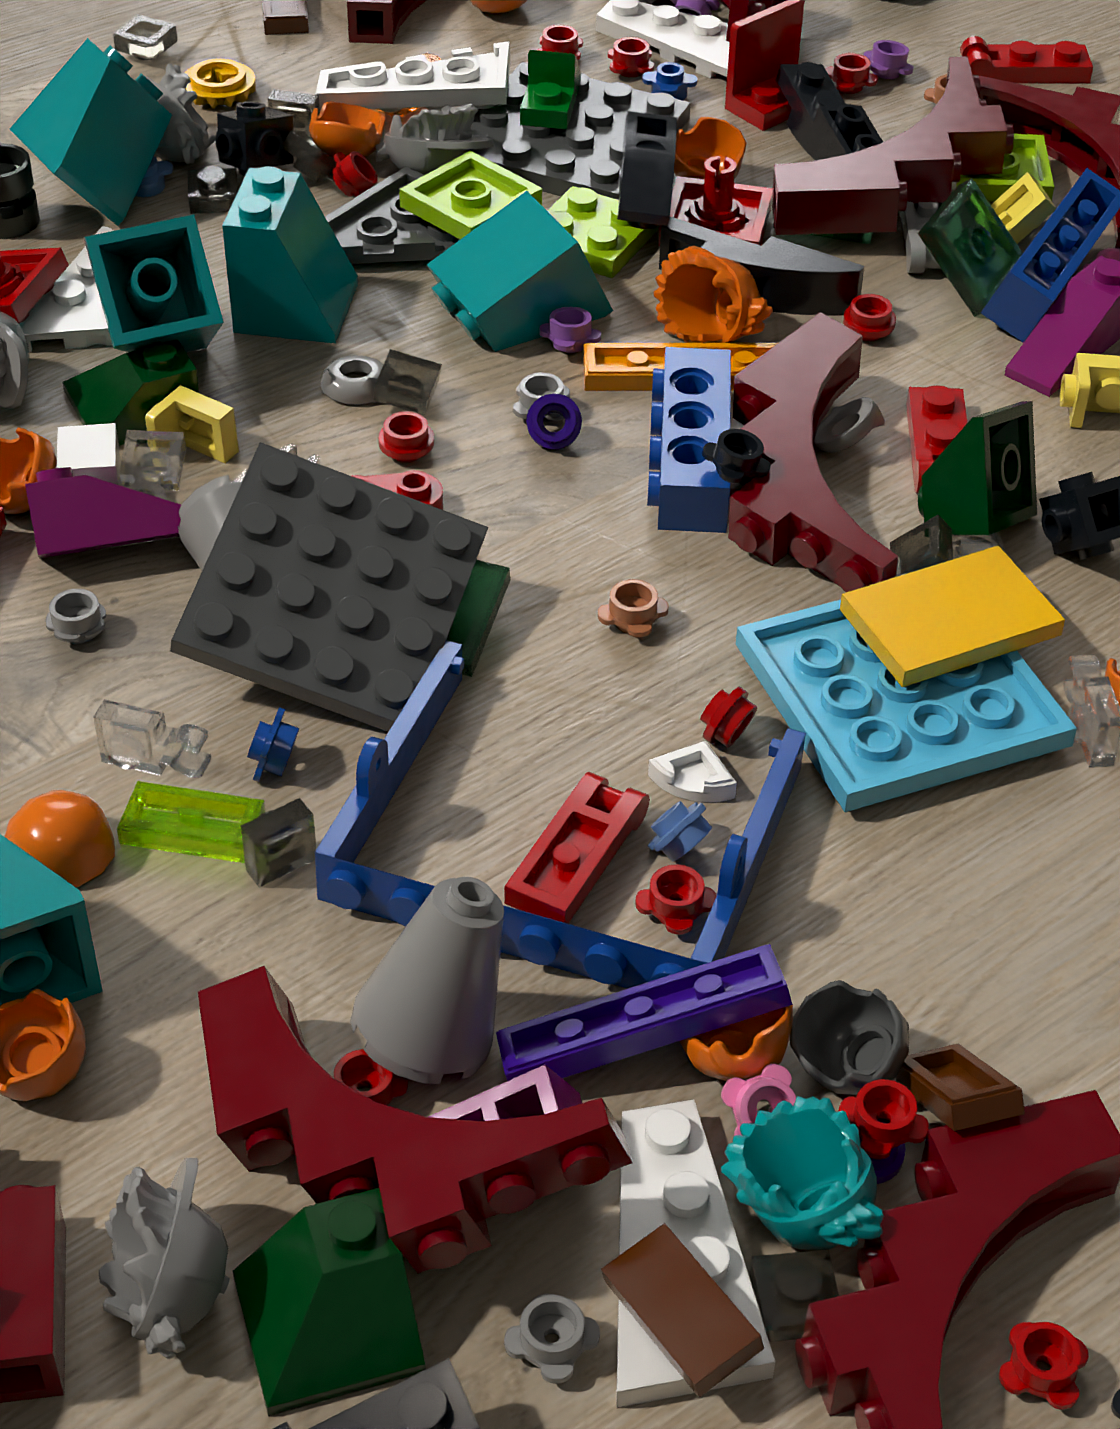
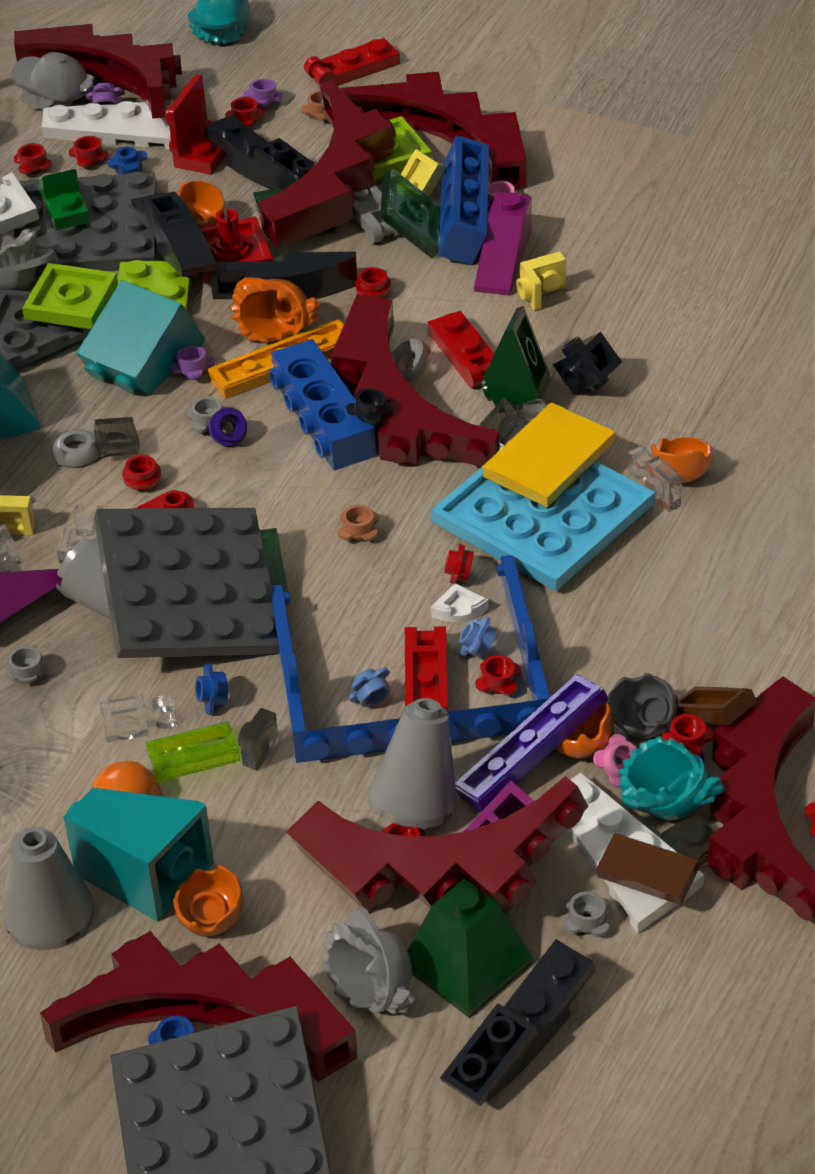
camera: 25 degrees left, 0 degrees up
(482, 836) = (370, 687): none -> medium blue plate

